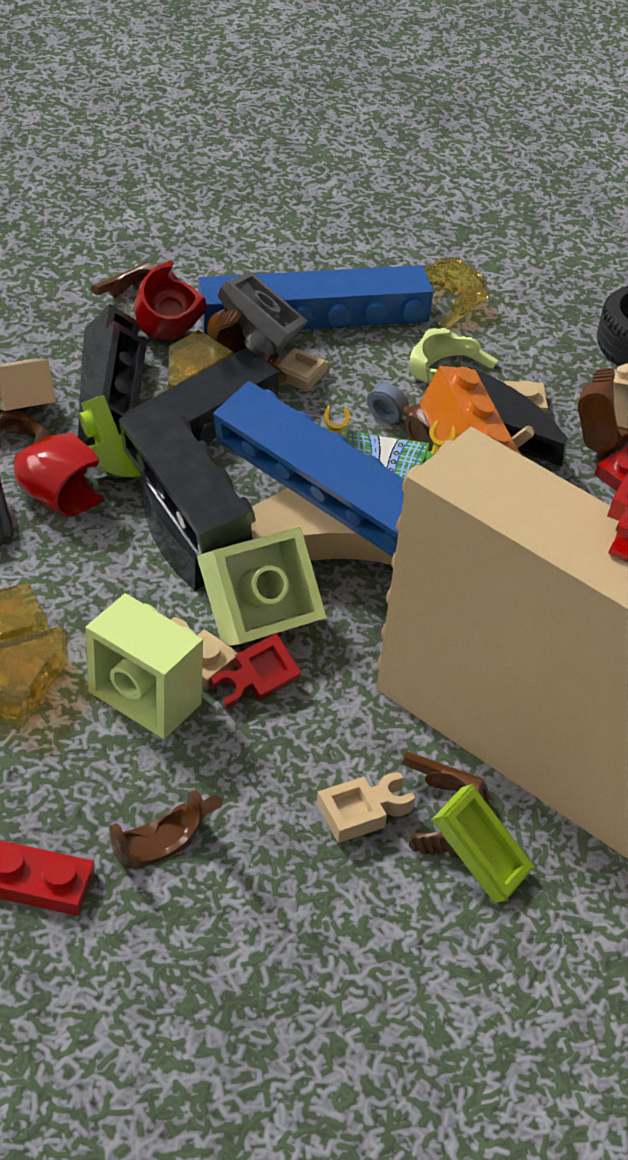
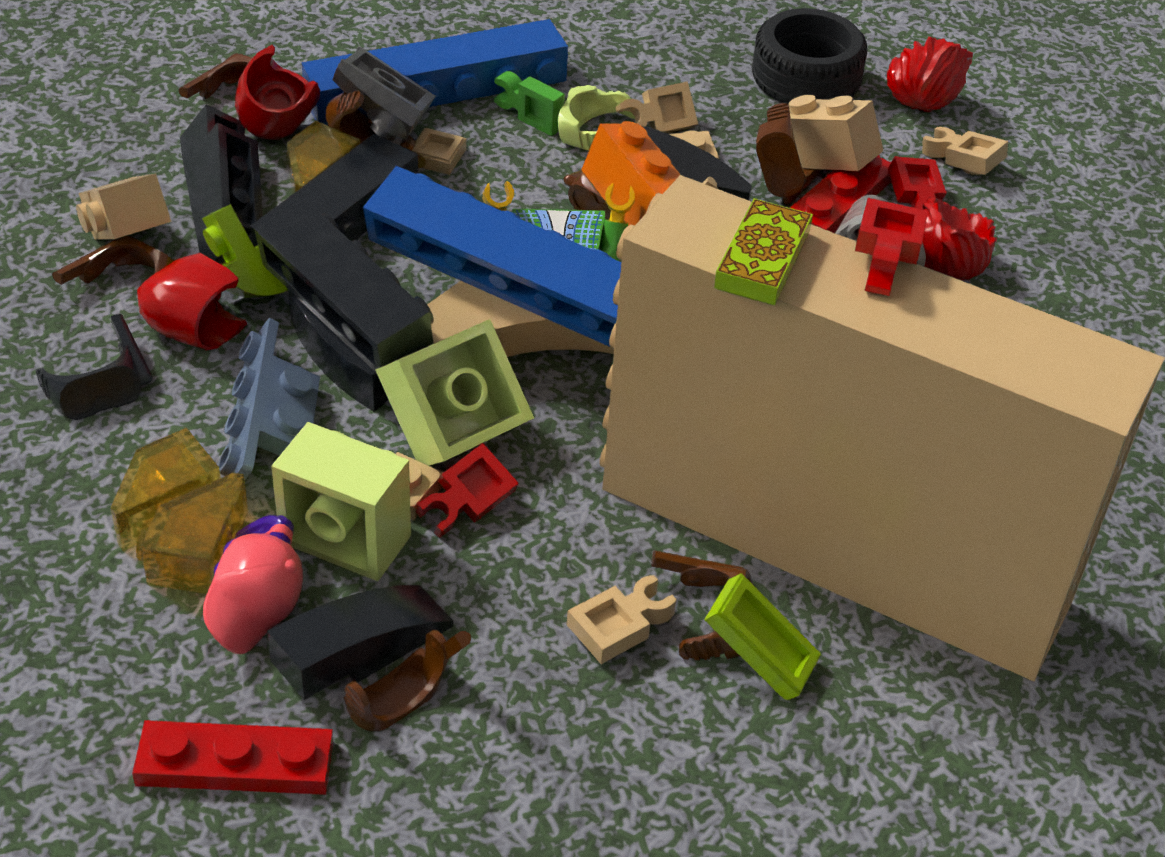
camera: 10 degrees left, 0 degrees up
(54, 725) = (253, 584): none -> coral hair
(107, 569) = (271, 403): none -> sand blue bracket
(130, 783) = (352, 635): none -> black slope
(387, 403) = (543, 174): sand blue tile -> none
(394, 335) = (535, 101): none -> bright green plate
(461, 279) = (595, 31): clear yellow helmet -> none
(508, 358) = (664, 108): none -> tan plate
(525, 505) = (763, 251): none -> tile

